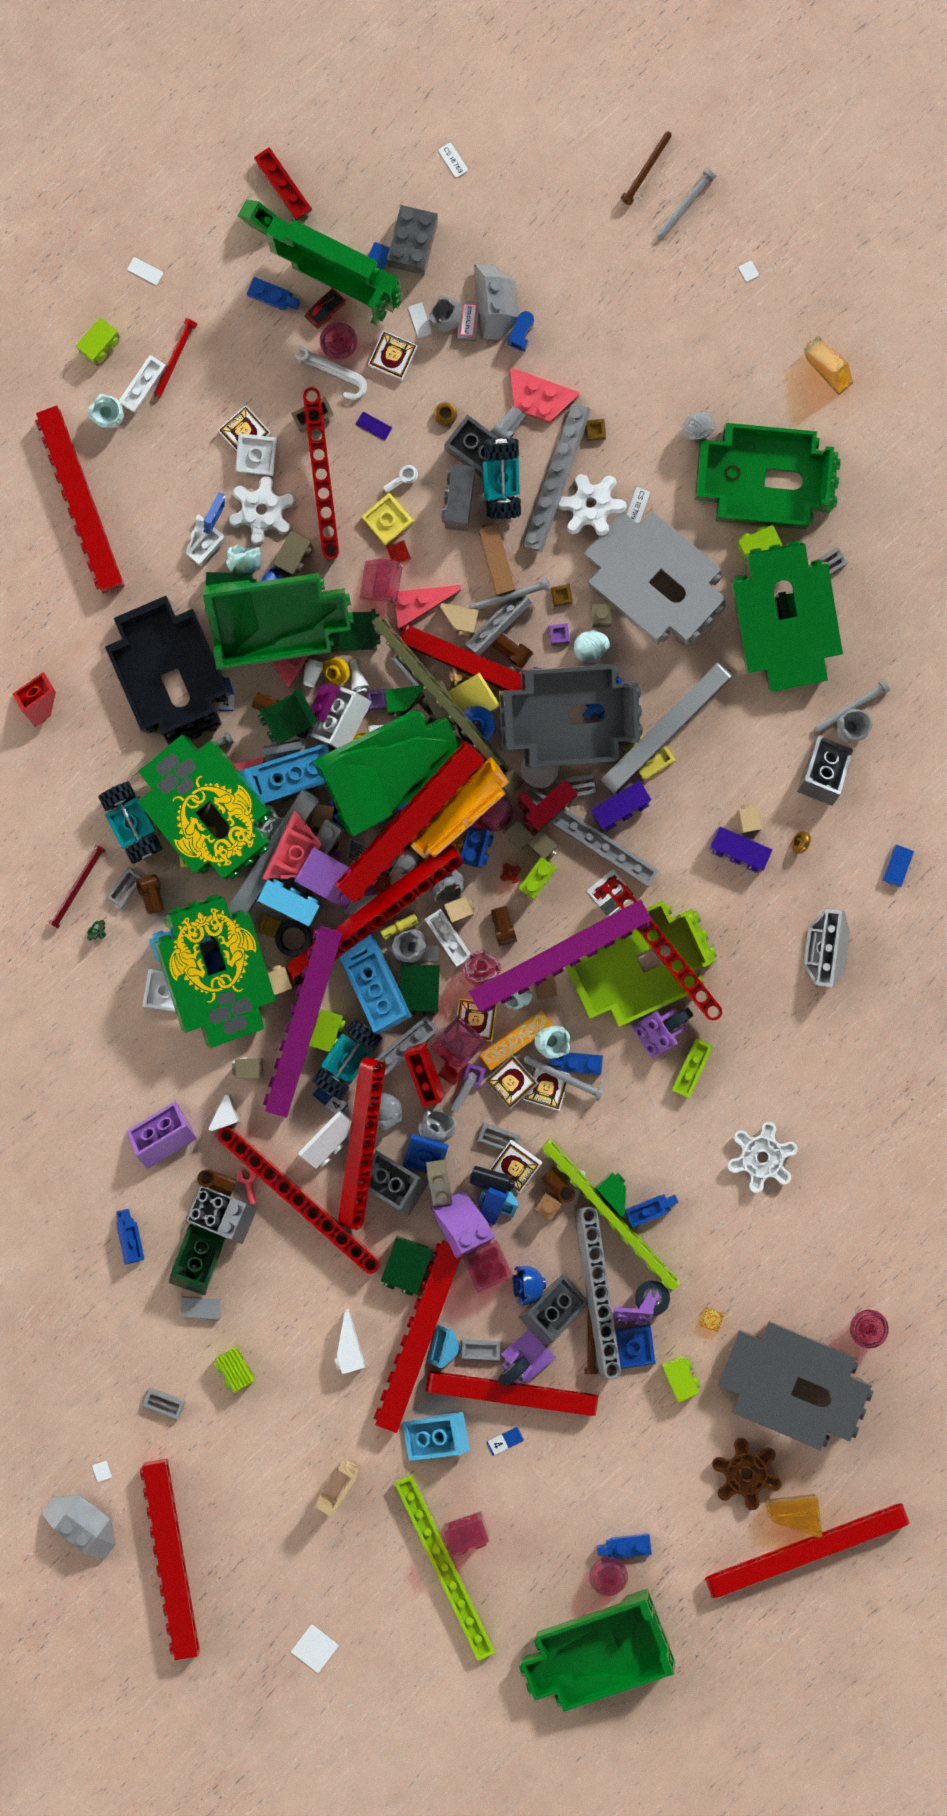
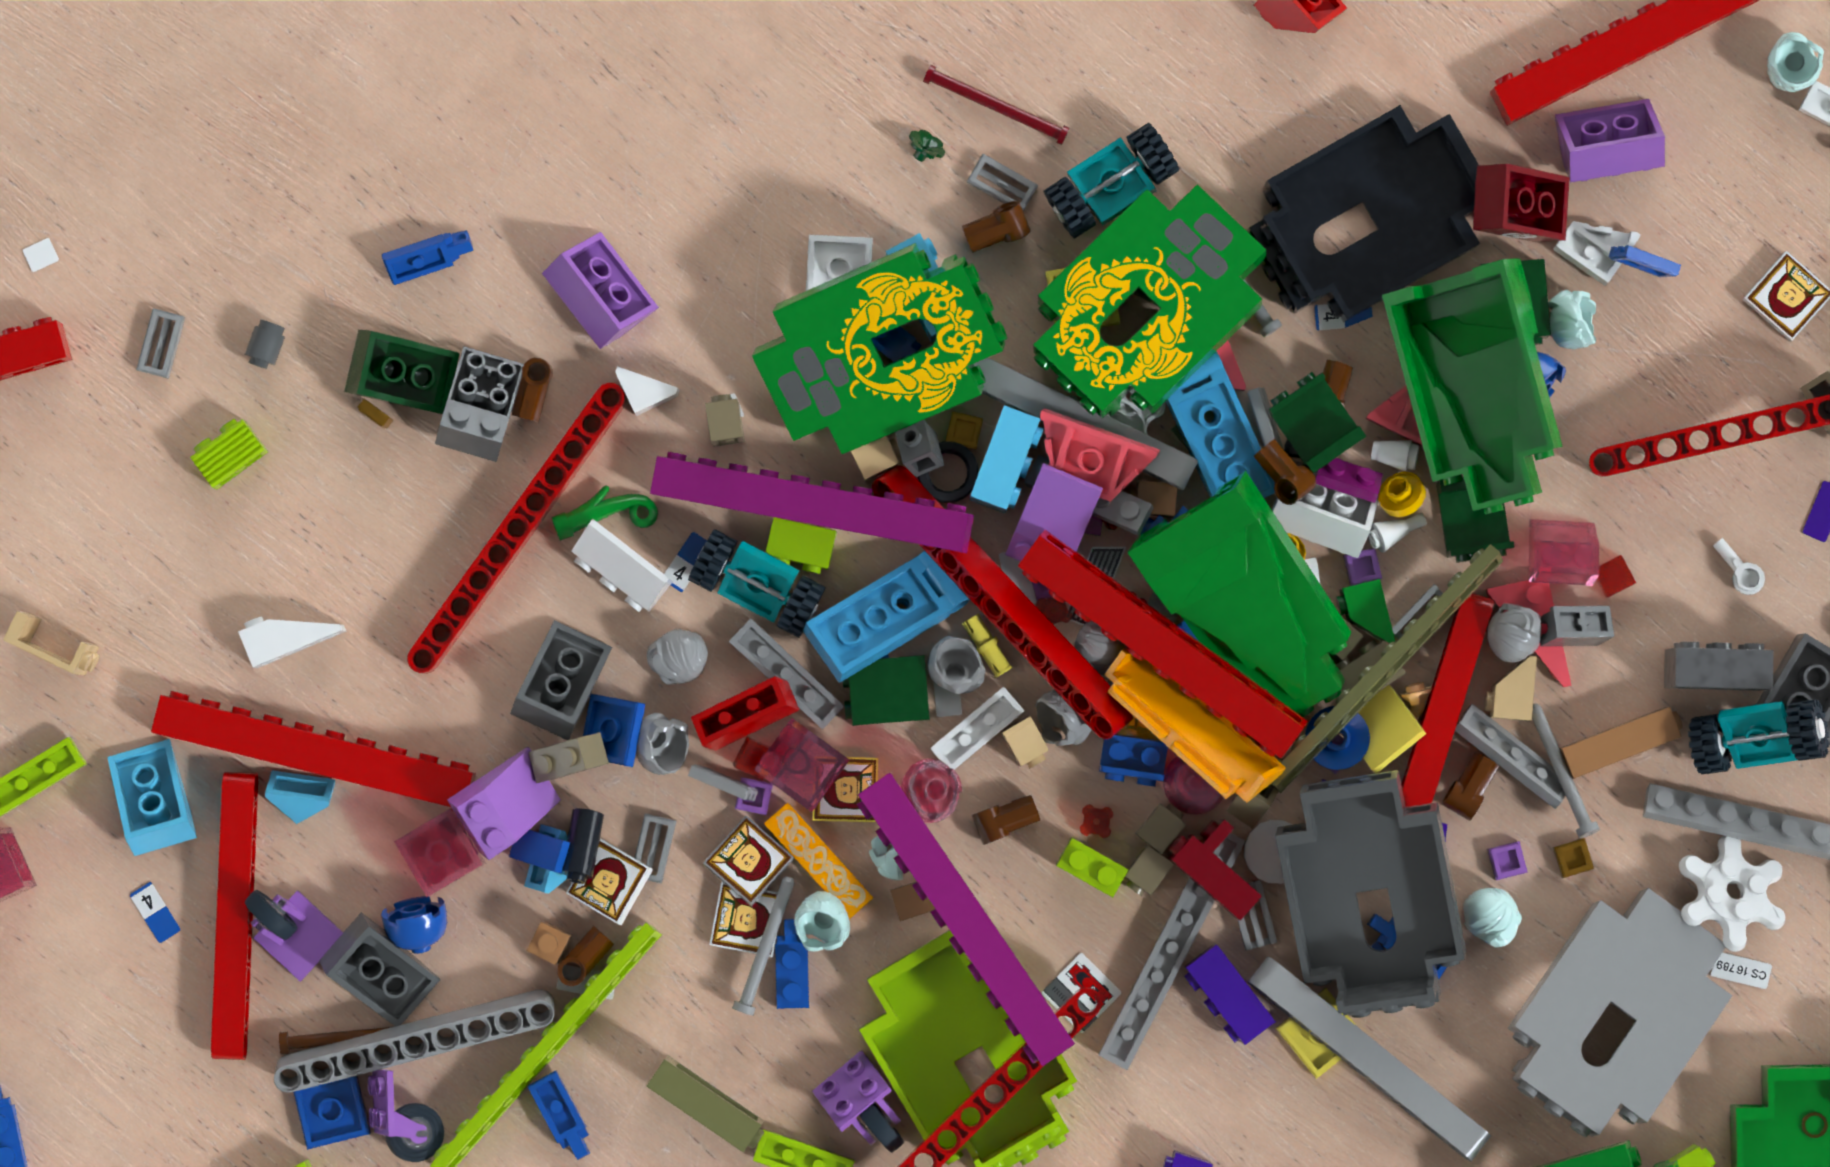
camera: 80 degrees right, 0 degrees up
(140, 525) = (1610, 140): none -> medium lavender slope
(171, 581) = (1521, 203): none -> dark red brick
(171, 1340) = (265, 344): none -> dark grey brick
(200, 1307) = (323, 386): light grey tile -> none
(220, 1278) = (375, 414): none -> pearl gold tile
(248, 1185) = (532, 443): coral bar -> none
(255, 454) = (1752, 319): white tile -> none
(261, 523) = (1637, 340): white plate -> none
(277, 953) = (919, 448): none -> dark grey brick
(293, 554) = (1590, 400): dark tan brick -> none
(299, 1168) = (596, 509): none -> green plant
(321, 735) = (1290, 480): none -> reddish brown piece
(361, 1143) = (620, 622): red beam -> none
(387, 519) = (1668, 551): light yellow tile -> none
(406, 1265) = (426, 718): dark green panel -> none
(425, 577) = (1577, 626): none -> hinge
(425, 614) = (1514, 632): none -> light grey hair
(480, 1349) = (301, 856): light grey tile -> none
(601, 615) = (1546, 928): dark tan brick -> none
(614, 1191) = (584, 1050): green slope -> none
(653, 1121) = (706, 1104): none -> olive piece

